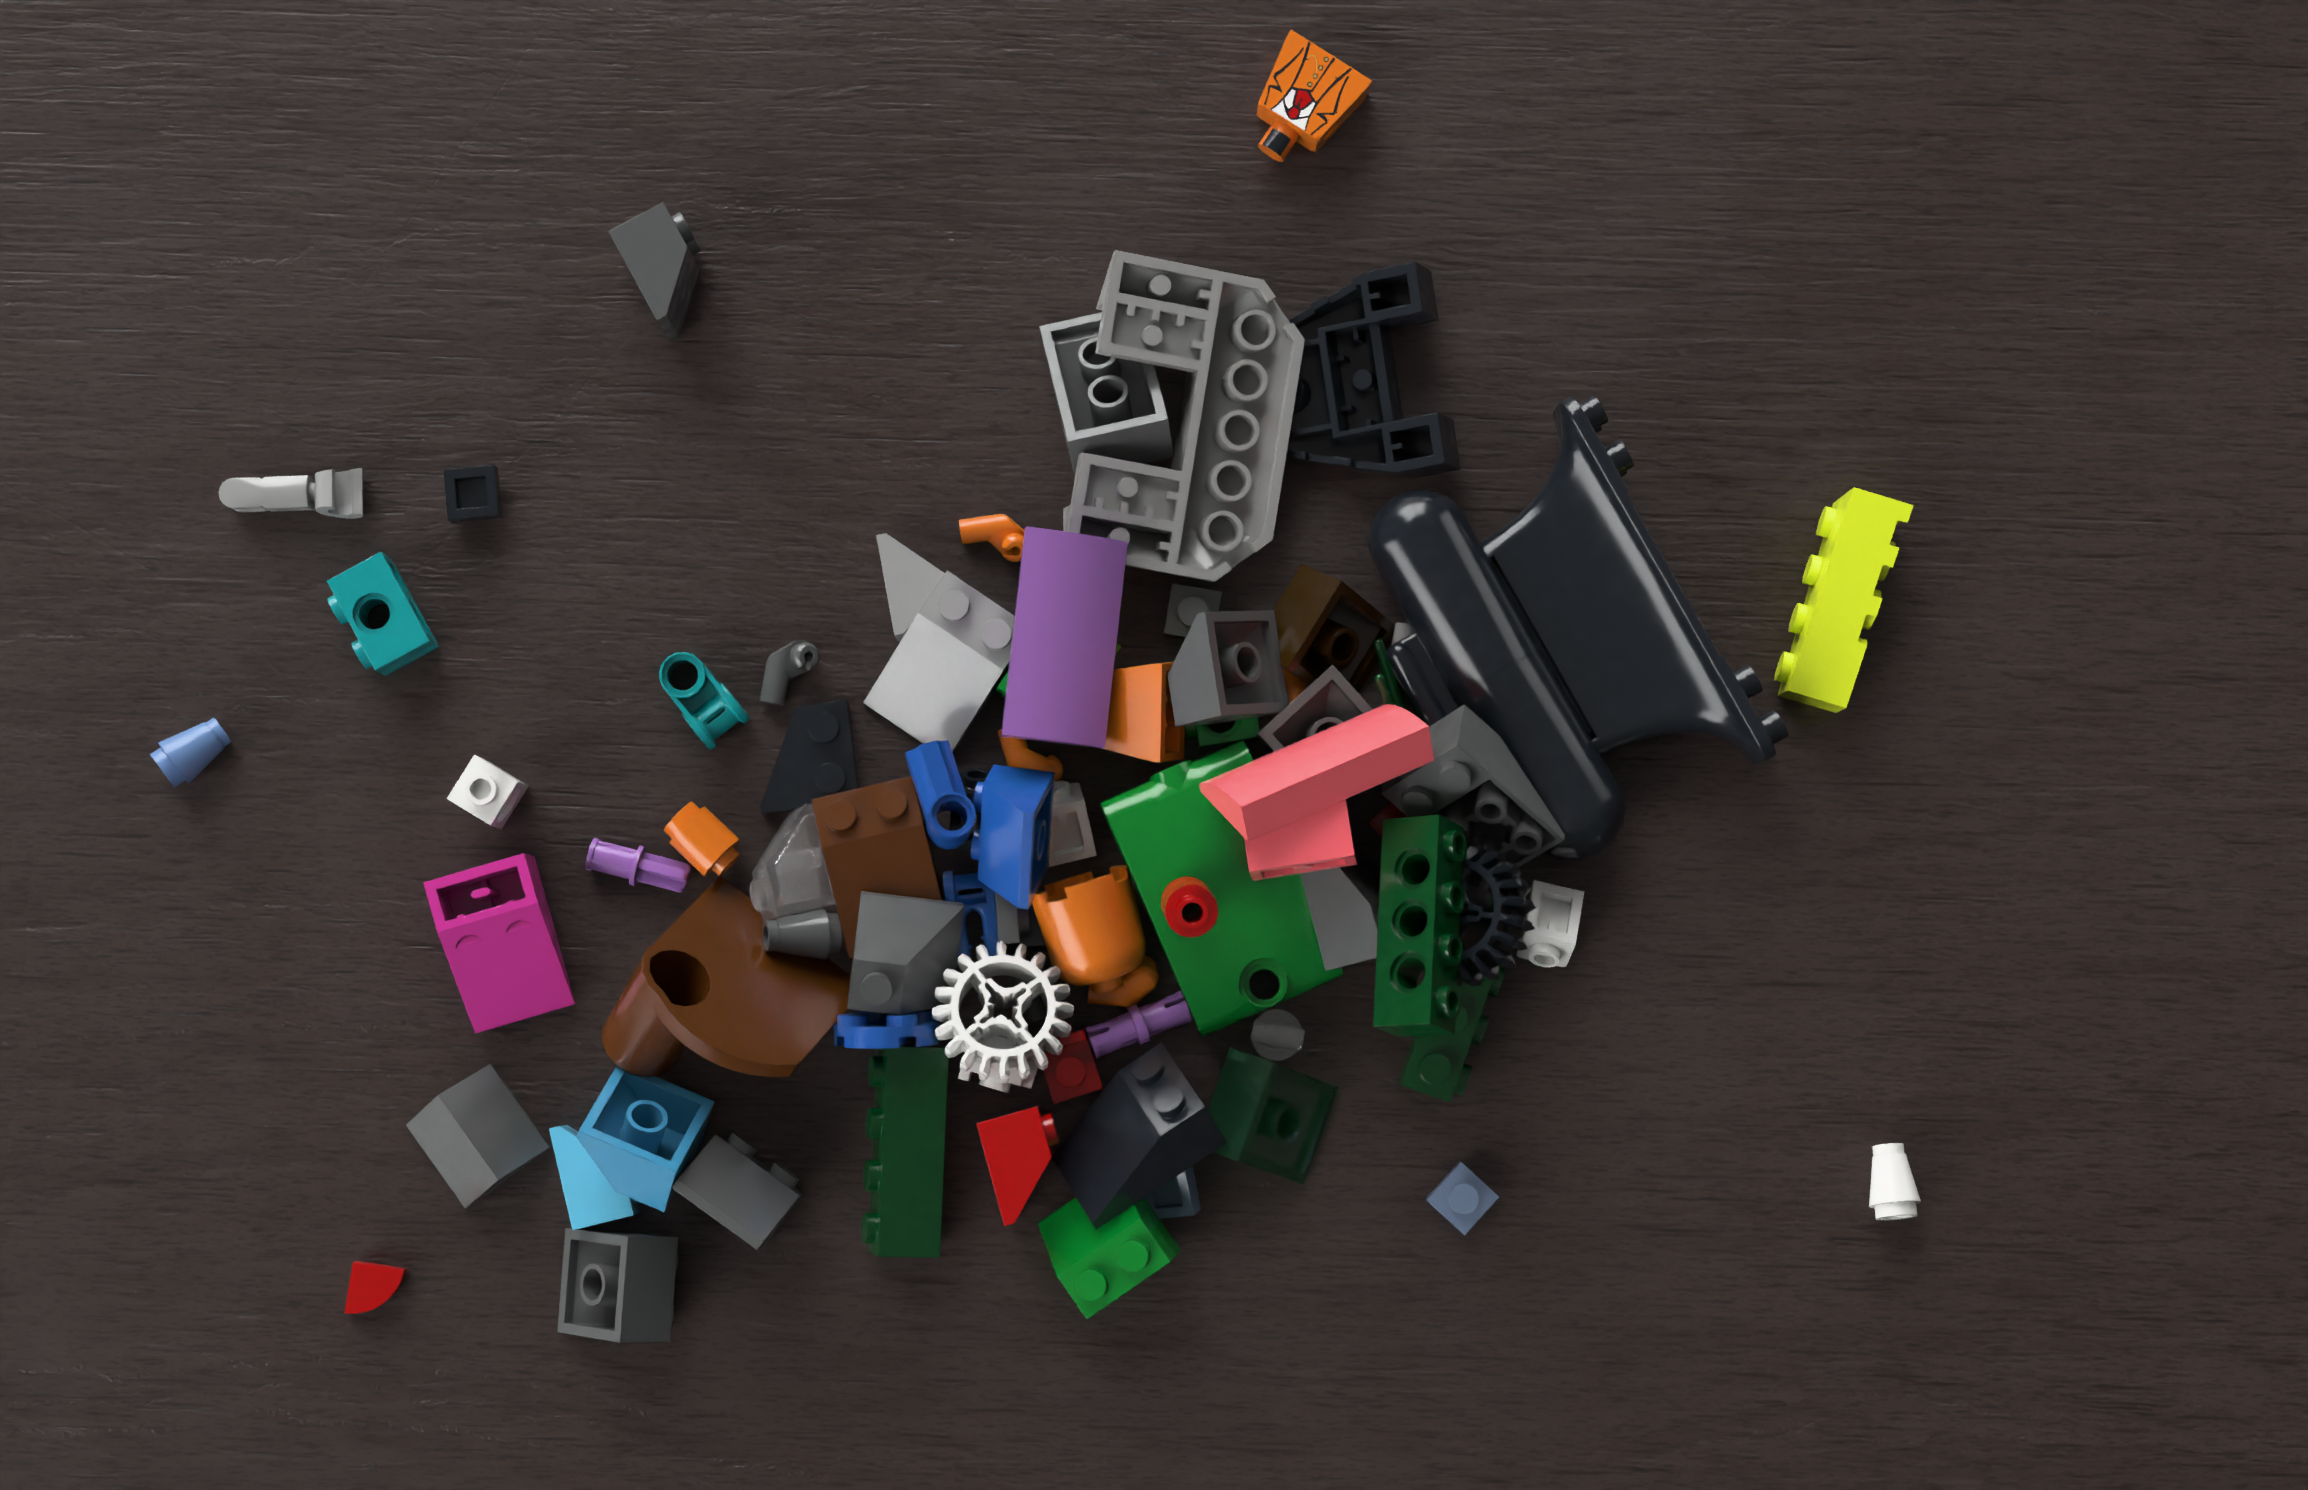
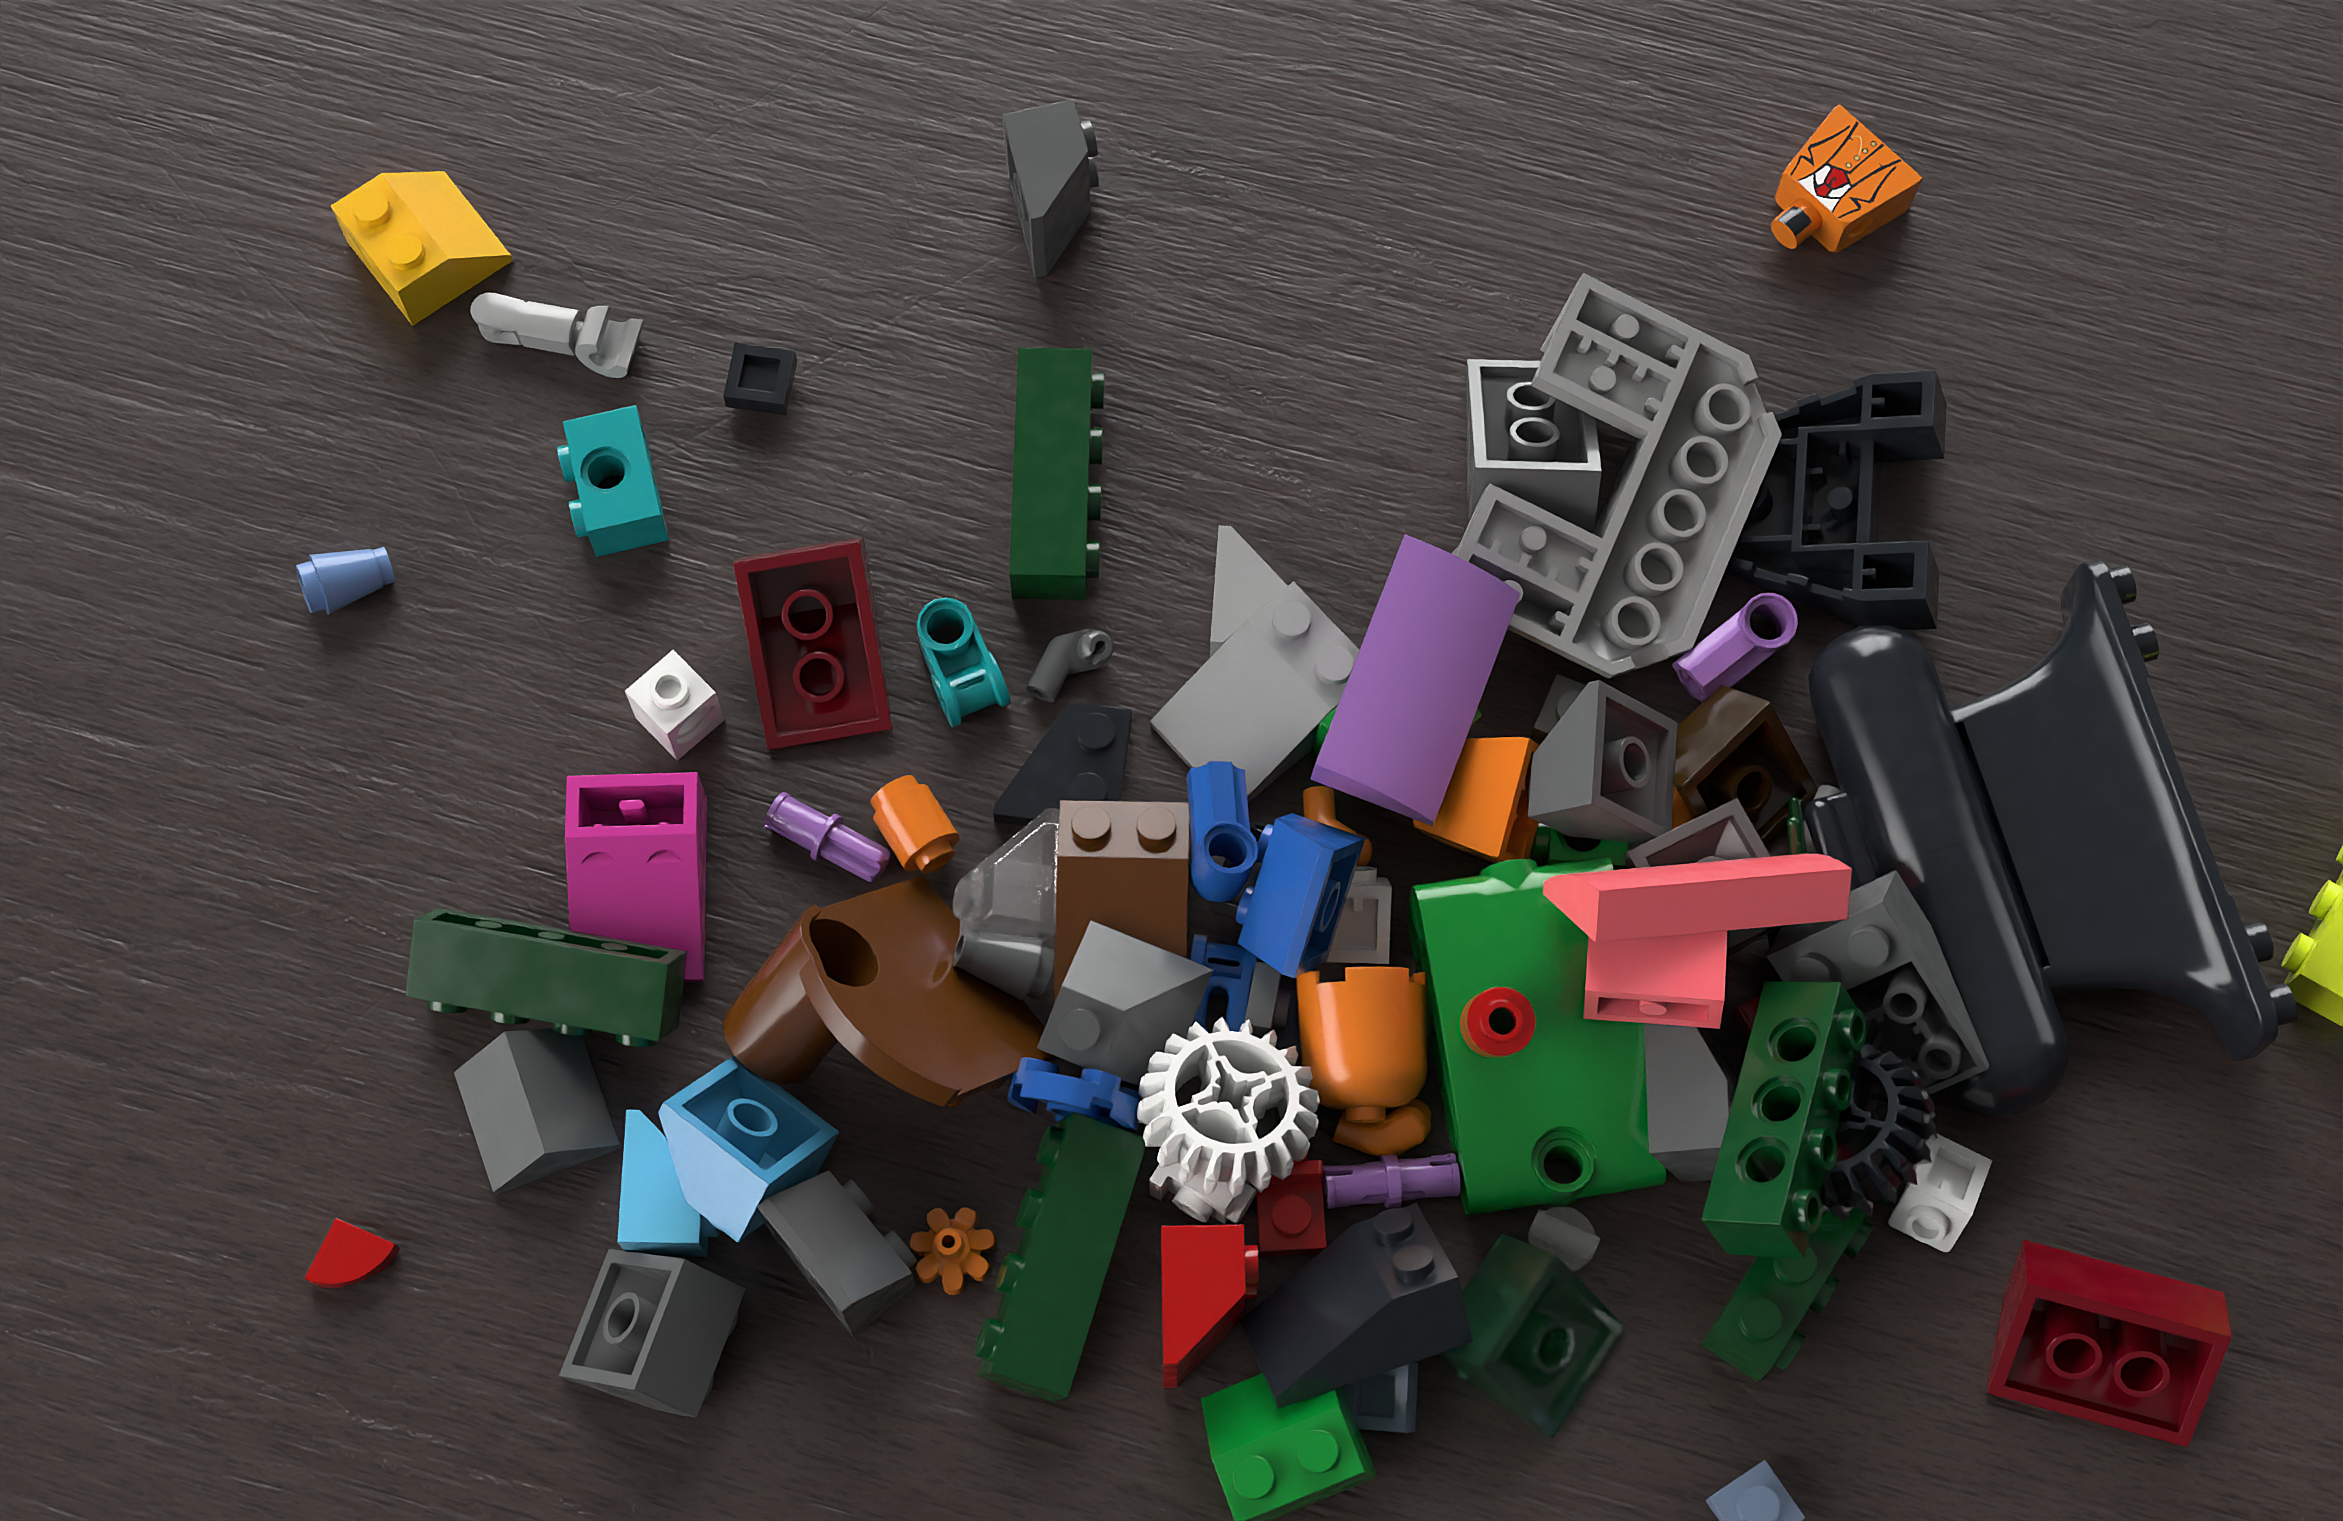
camera: 20 degrees right, 15 degrees down
(157, 441) = (419, 239): none -> yellow slope
(454, 1038) = (546, 976): none -> dark green brick
(580, 708) = (814, 643): none -> dark red slope
(732, 517) = (1053, 474): none -> dark green brick
(831, 1151) = (955, 1261): none -> orange plant
(996, 529) = (1361, 566): orange arm -> none
(1303, 531) = (1734, 649): none -> medium lavender piece
(1694, 1008) = (2108, 1343): none -> dark red slope

